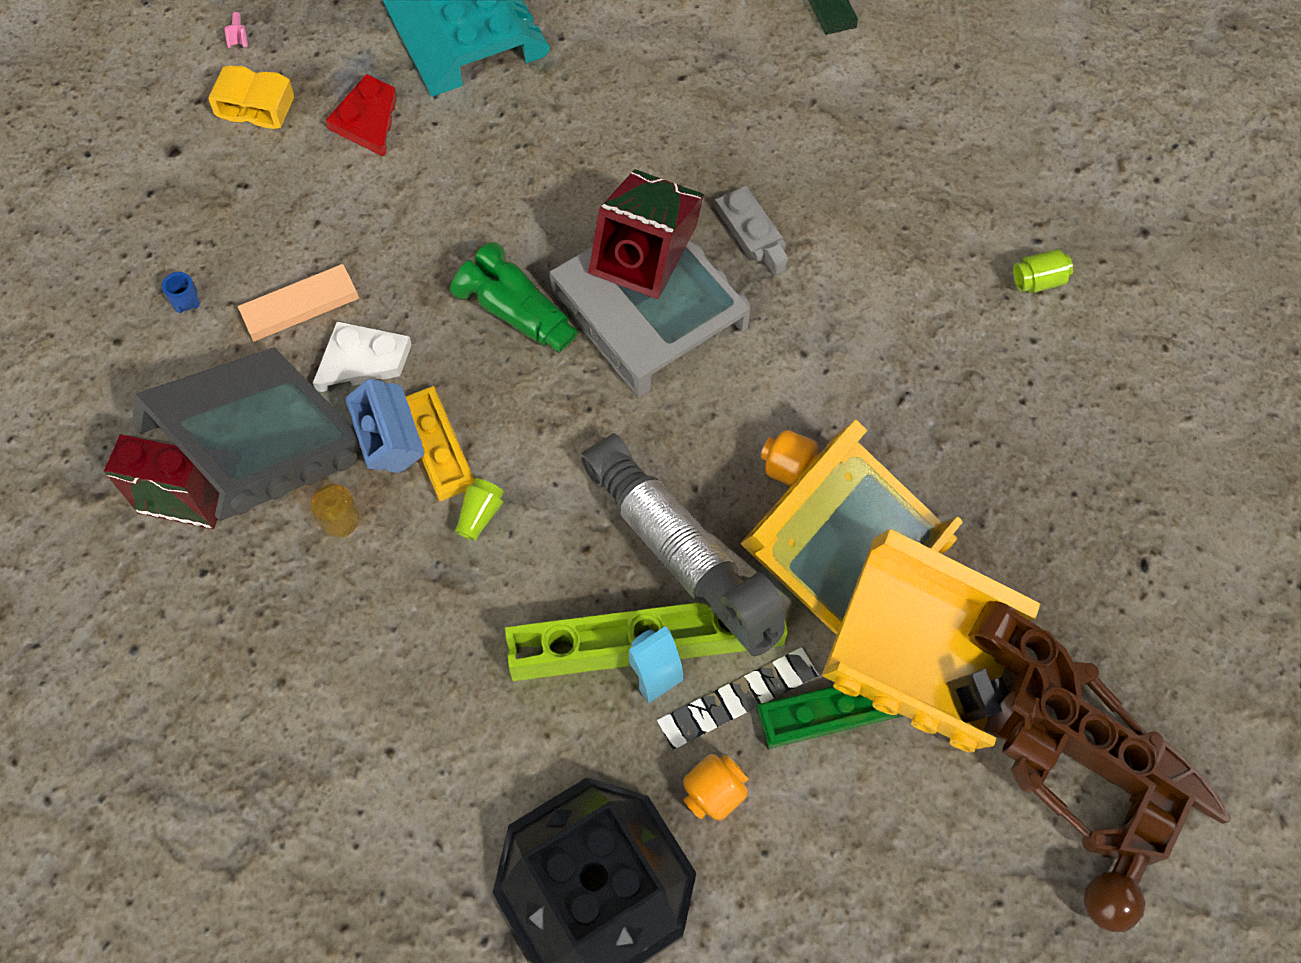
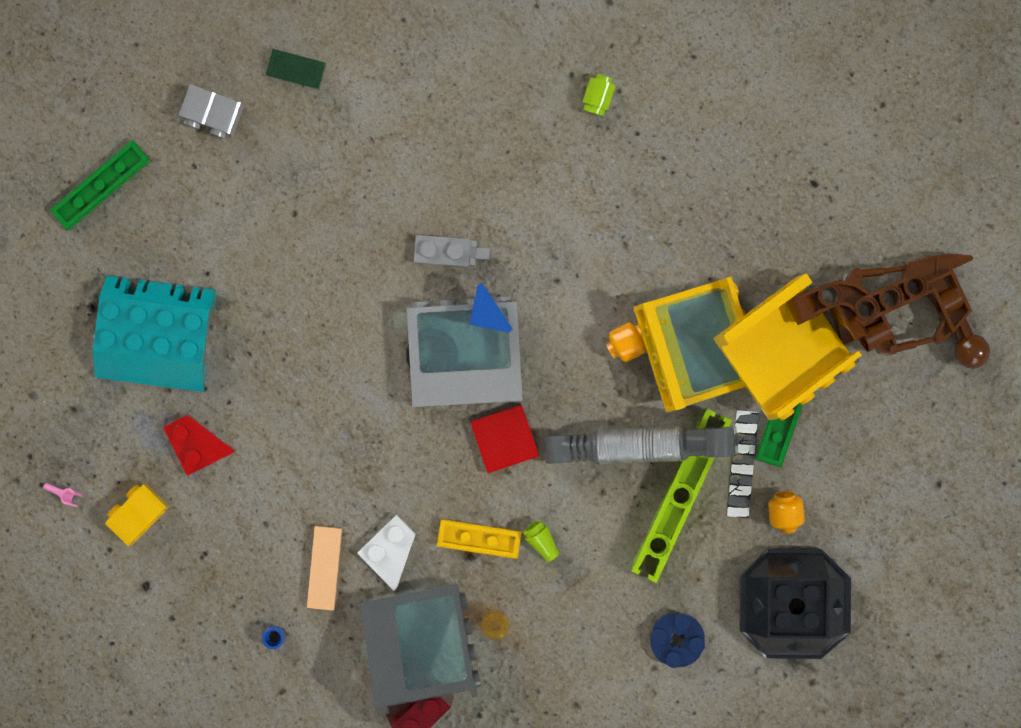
camera: 55 degrees left, 25 degrees up
(384, 426) = (459, 567): medium blue brick -> none
(455, 779) = (692, 643): none -> dark blue plate
(512, 297) = (411, 435): green piece -> none
(578, 401) = (504, 439): none -> red tile
(644, 232) = (428, 334): dark red slope -> none
(655, 663) = (703, 503): medium azure slope -> none
(714, 274) = (487, 313): none -> blue slope
(977, 695) = (830, 342): black tile -> none

